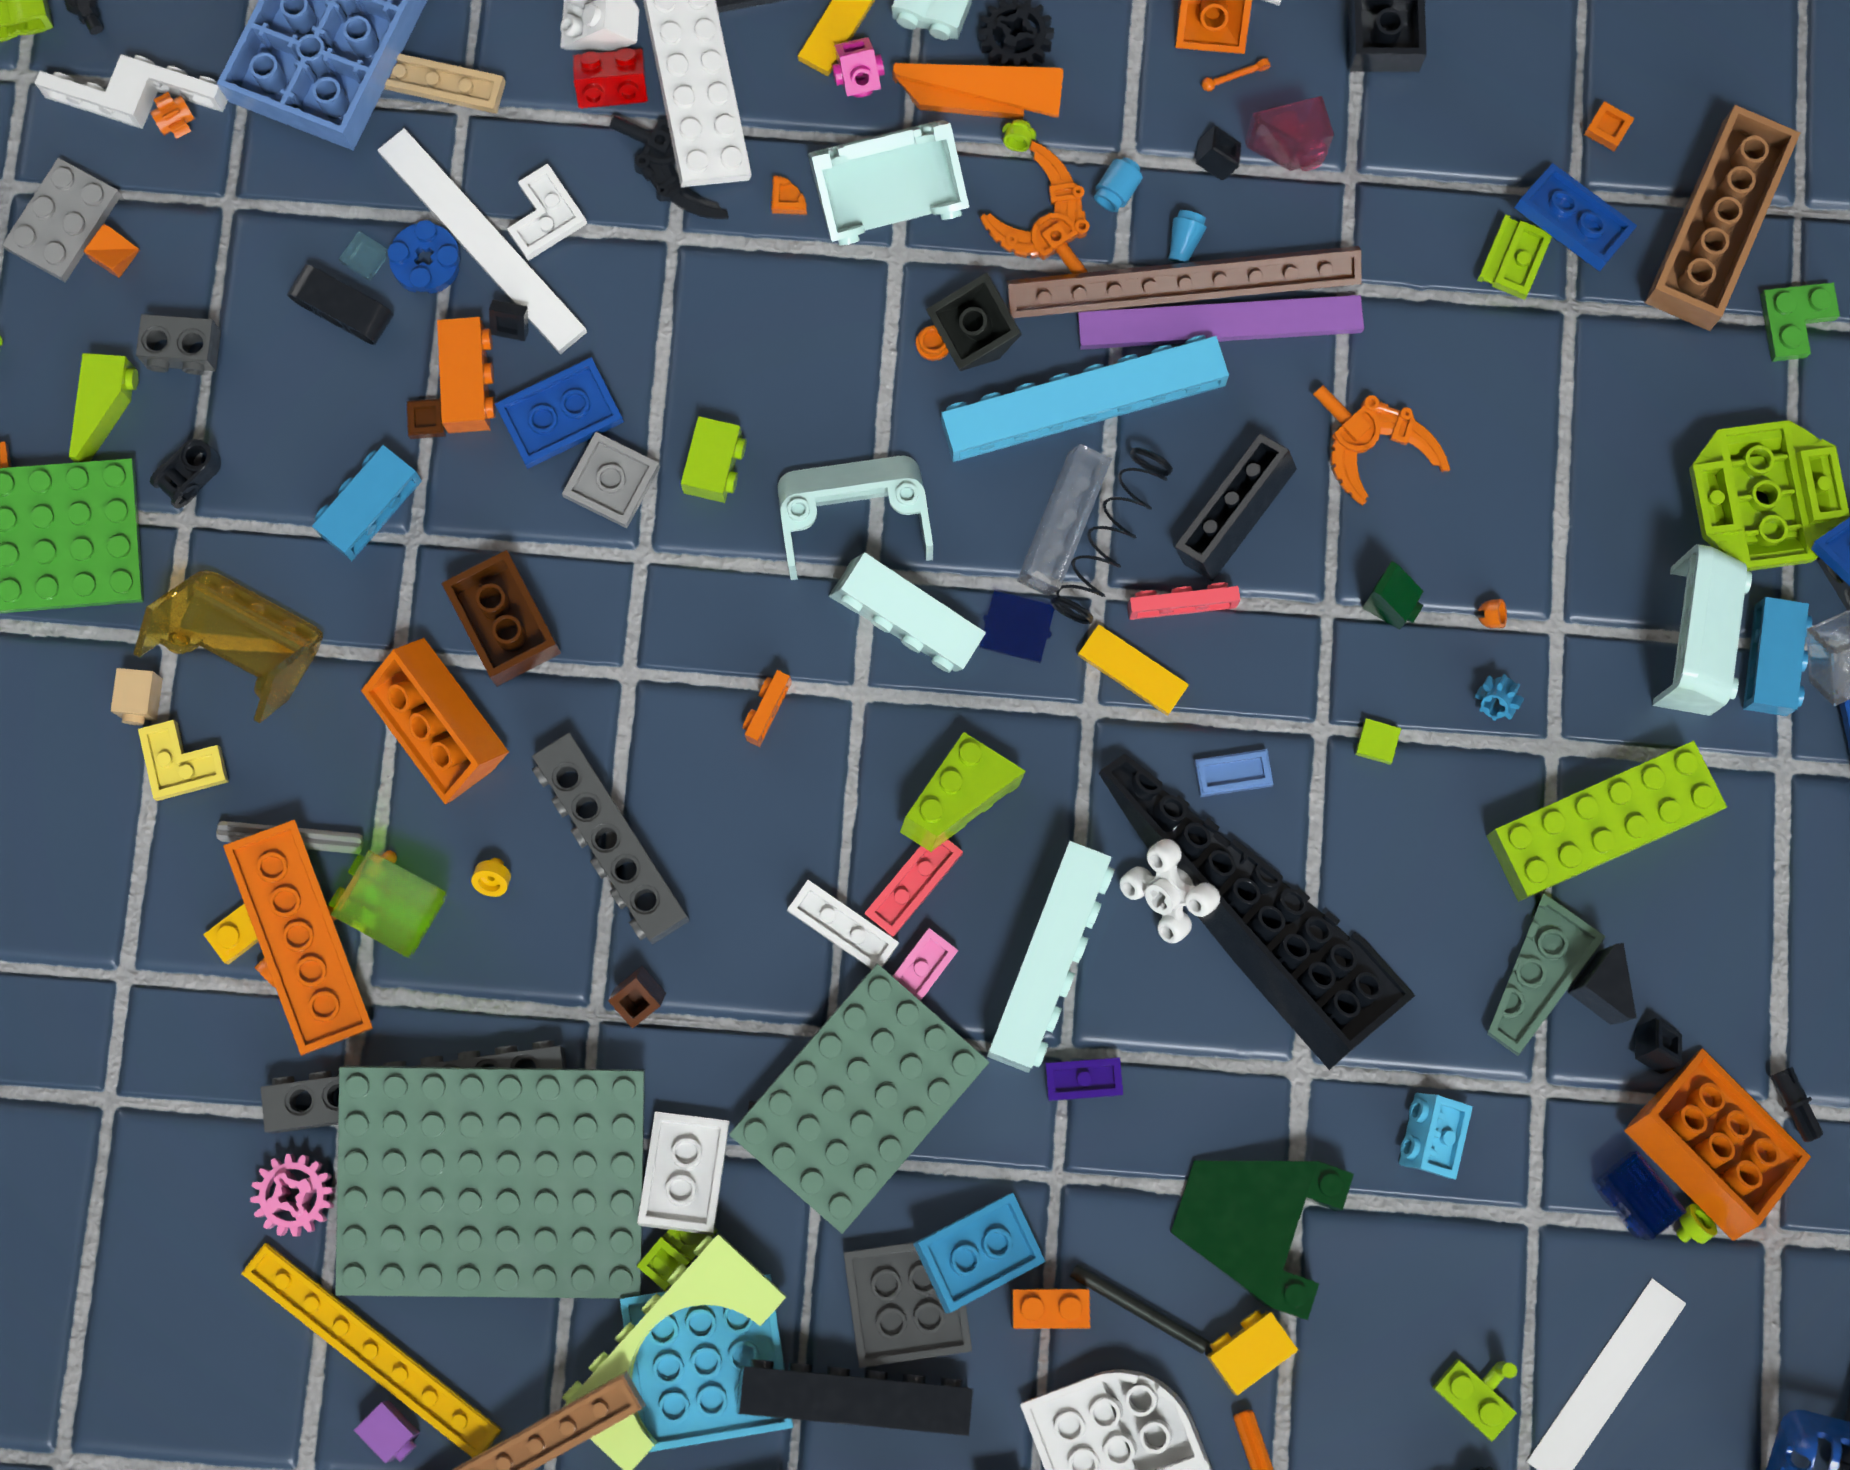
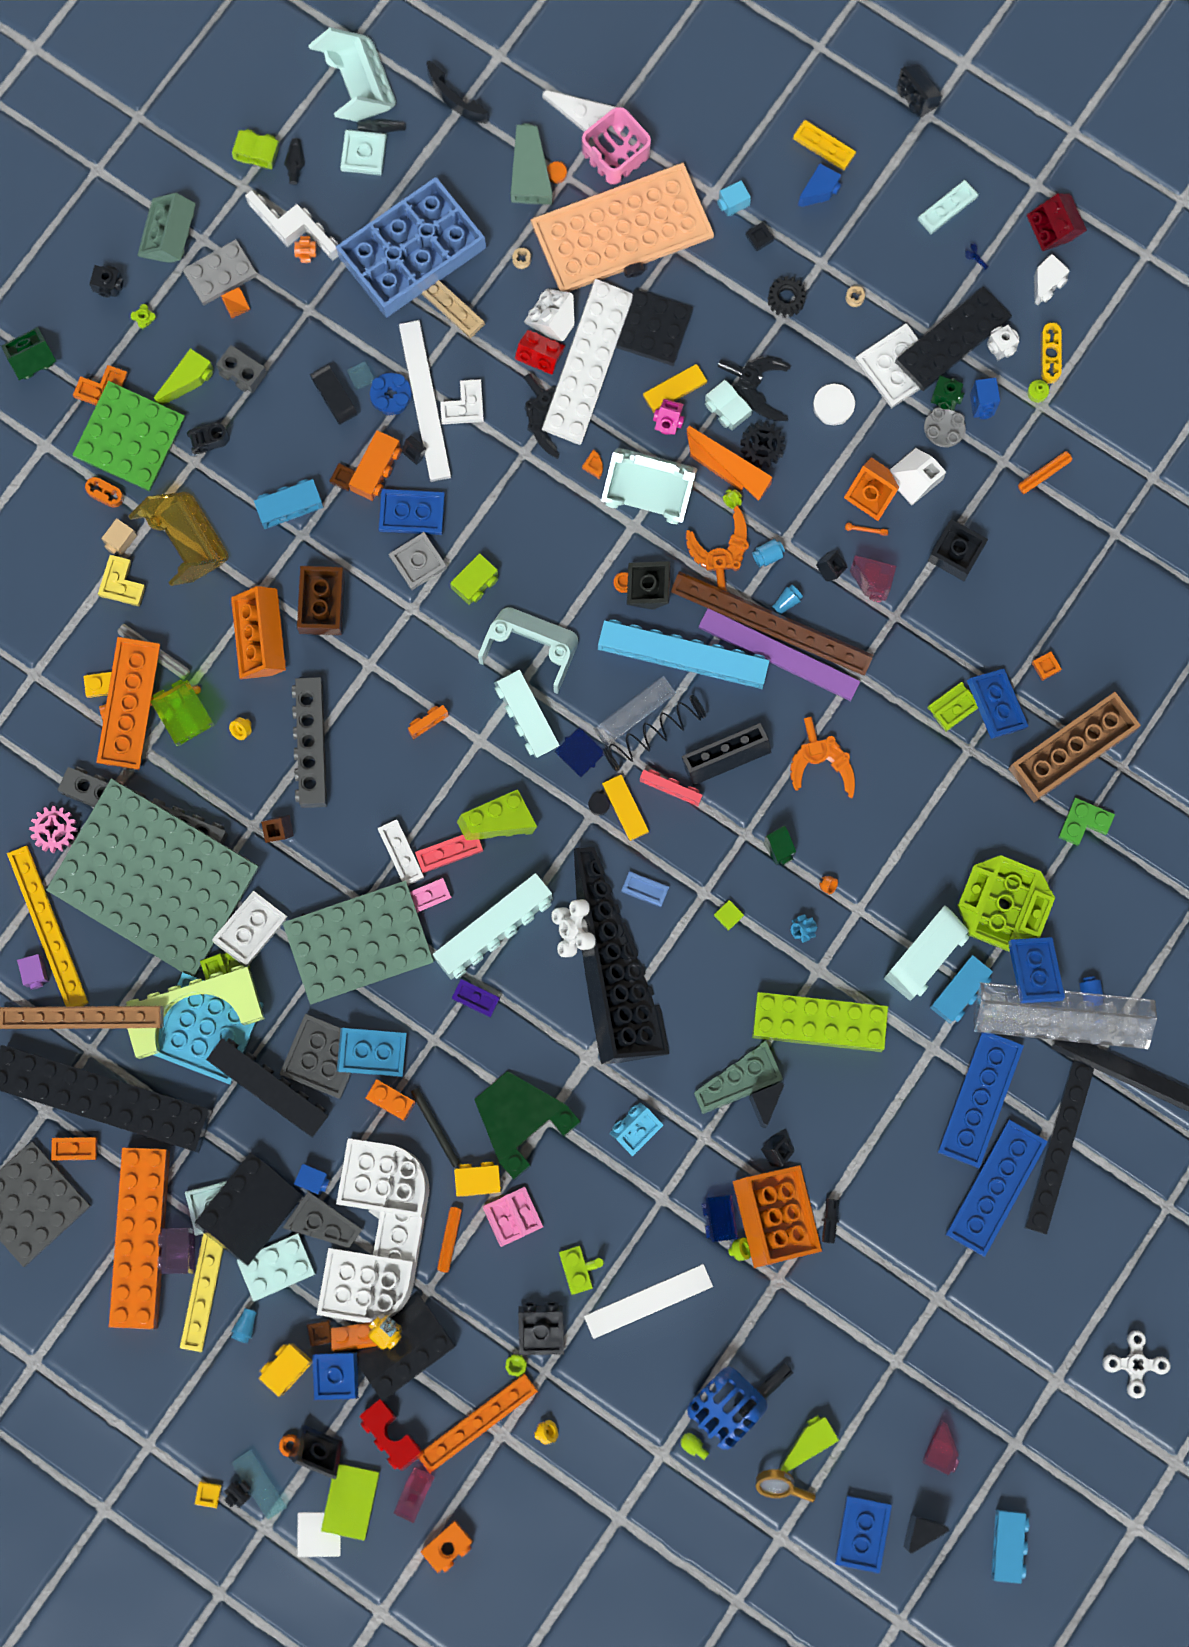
camera: 30 degrees right, 0 degrees up
(74, 632) = (106, 488): none -> orange beam
(1091, 687) = (599, 804): none -> black tile
(1334, 1375) = (512, 1217): none -> bright pink slope

